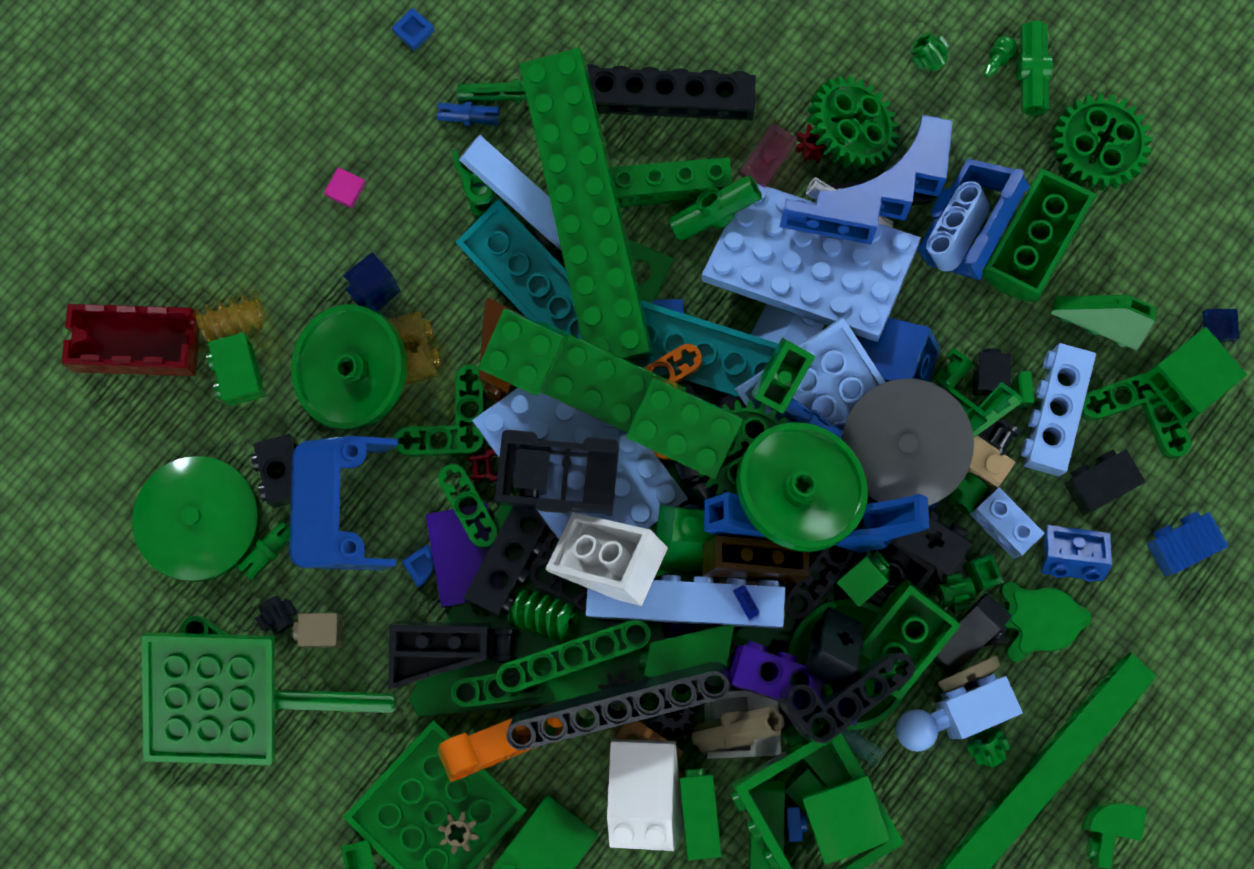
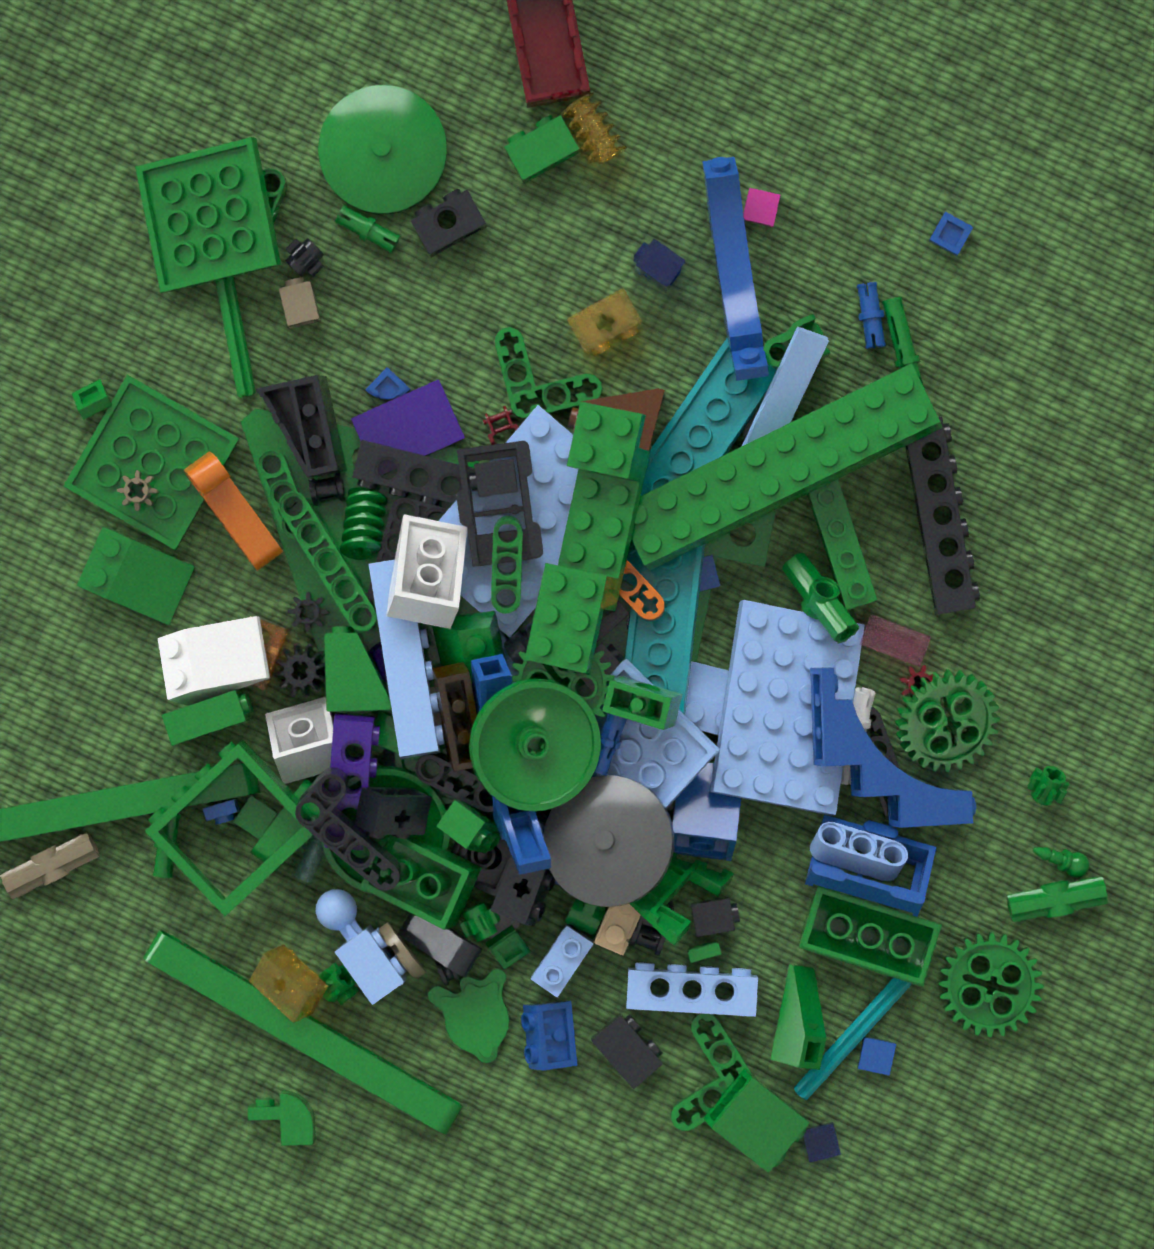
camera: 70 degrees right, 10 degrees up
(316, 504) = (420, 272): blue windscreen -> none
(349, 367) = (568, 264): green dish -> none
(396, 220) = (734, 268): none -> blue arch
(449, 490) = (432, 431): green beam -> none
(607, 717) = (302, 622): black beam -> none
(634, 477) = (500, 579): none -> green beam
(738, 729) = (294, 735): dark tan piece -> none
(746, 603) = (411, 716): clear blue tile -> none
(846, 819) = (233, 855): green slope -> none
(981, 795) = (288, 983): none -> clear yellow brick
(1126, 274) = (851, 1037): none -> teal axle
(1148, 257) = (876, 1055): none -> blue tile
(1186, 544) = (584, 1143): blue brick -> none

